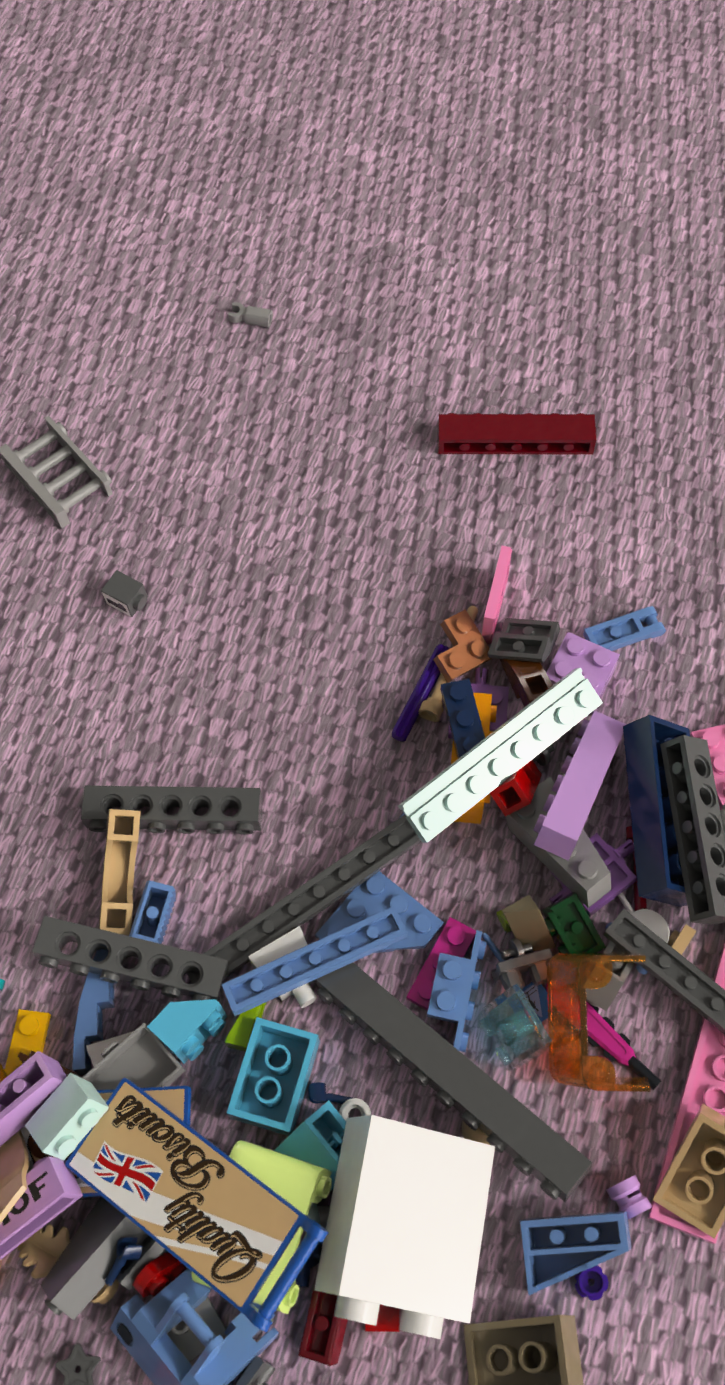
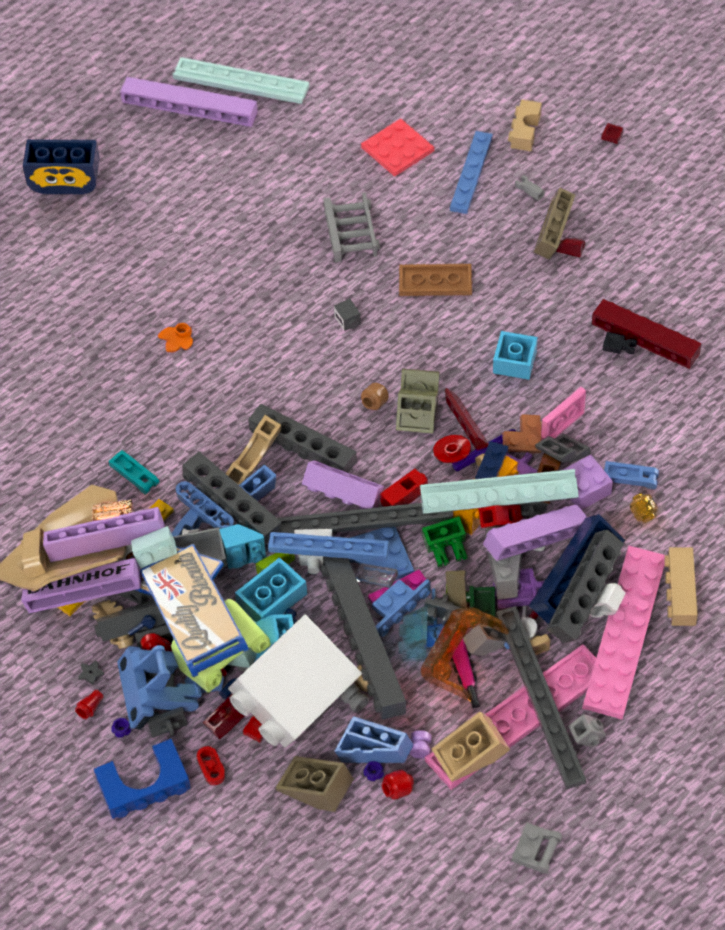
camera: 30 degrees right, 10 degrees down
(51, 338) = (397, 147): none -> coral plate
(98, 1000) = (206, 506): none -> medium blue beam
(165, 329) = (471, 172): none -> medium blue plate
(199, 252) = (522, 135): none -> tan arch
(207, 489) = (435, 279): none -> medium nougat tile
(232, 692) = (374, 396): none -> medium nougat head
(270, 848) = (342, 485): none -> lavender brick
(295, 670) = (417, 400): none -> olive bracket
(305, 204) = (612, 133): none -> dark red plate
(313, 345) = (554, 223): none -> dark tan brick
(349, 366) = (571, 247): none -> dark red brick
(357, 810) = (404, 490): none -> red brick
(373, 665) = (465, 420): none -> dark red slope
(378, 705) = (452, 448): none -> red dish
(379, 542) = (515, 355): none -> medium azure brick
(400, 961) = (376, 575): none -> clear plate
(459, 843) = (443, 535): none -> green brick
(489, 465) = (616, 343): none -> black plate
(501, 1180) = (354, 698): none -> light grey wheel
(641, 1287) = (397, 784): none -> red head
(673, 668) = (643, 507): none -> clear yellow head

